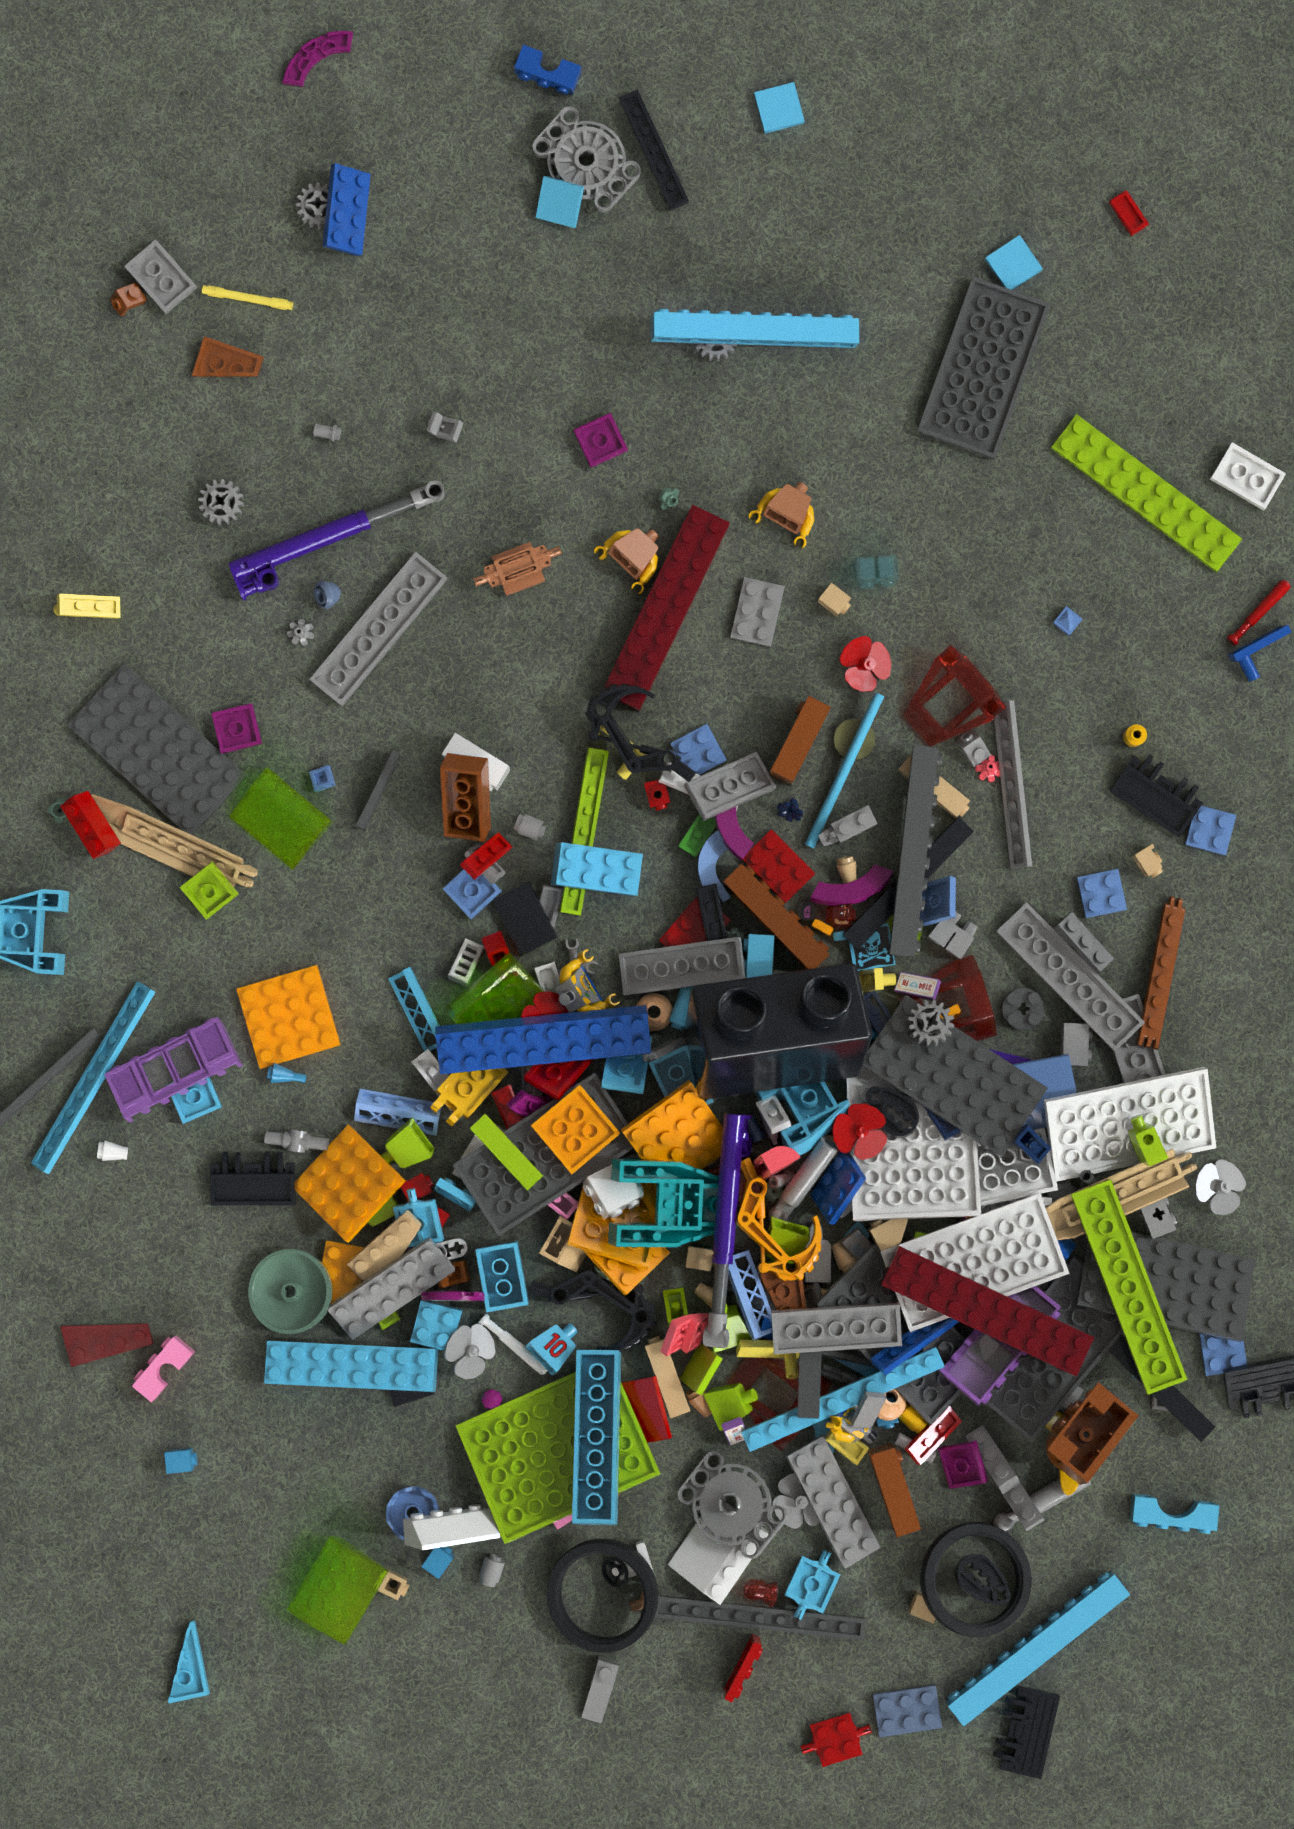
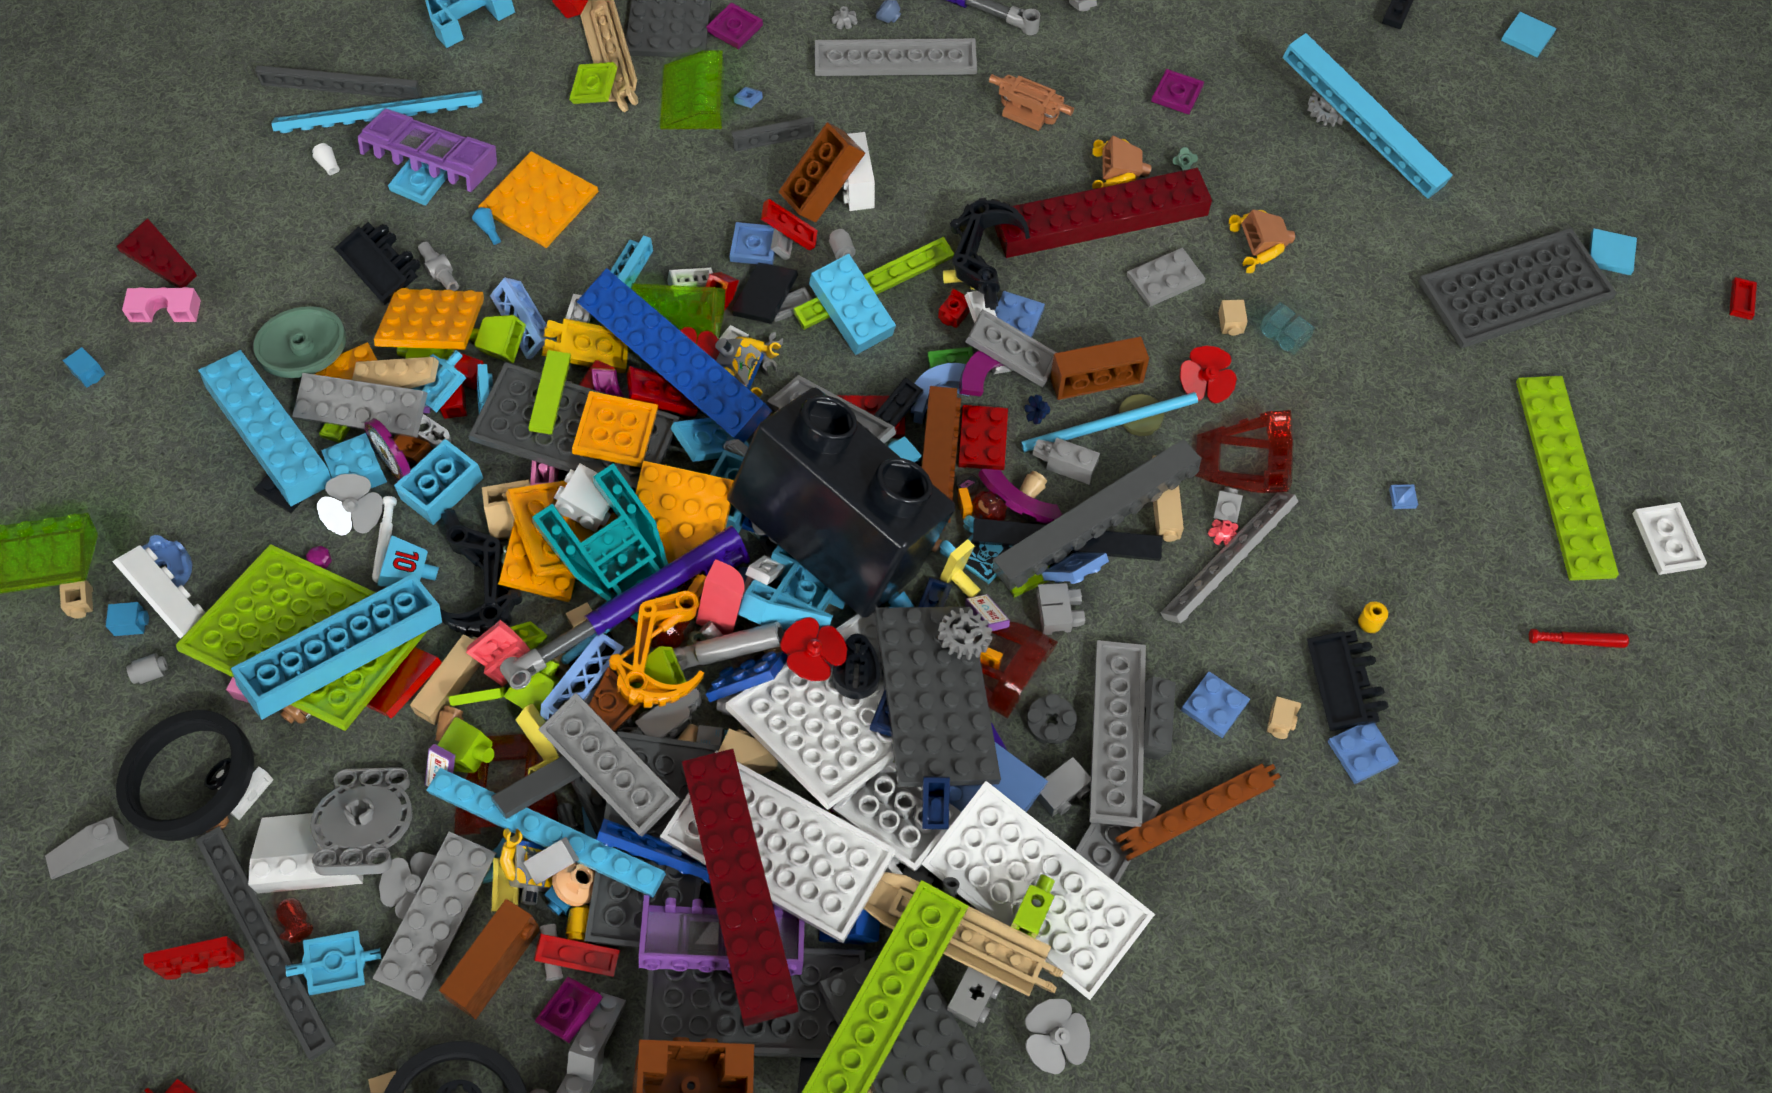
camera: 55 degrees right, 25 degrees down
(1243, 653) = (1536, 651): blue piece -> none

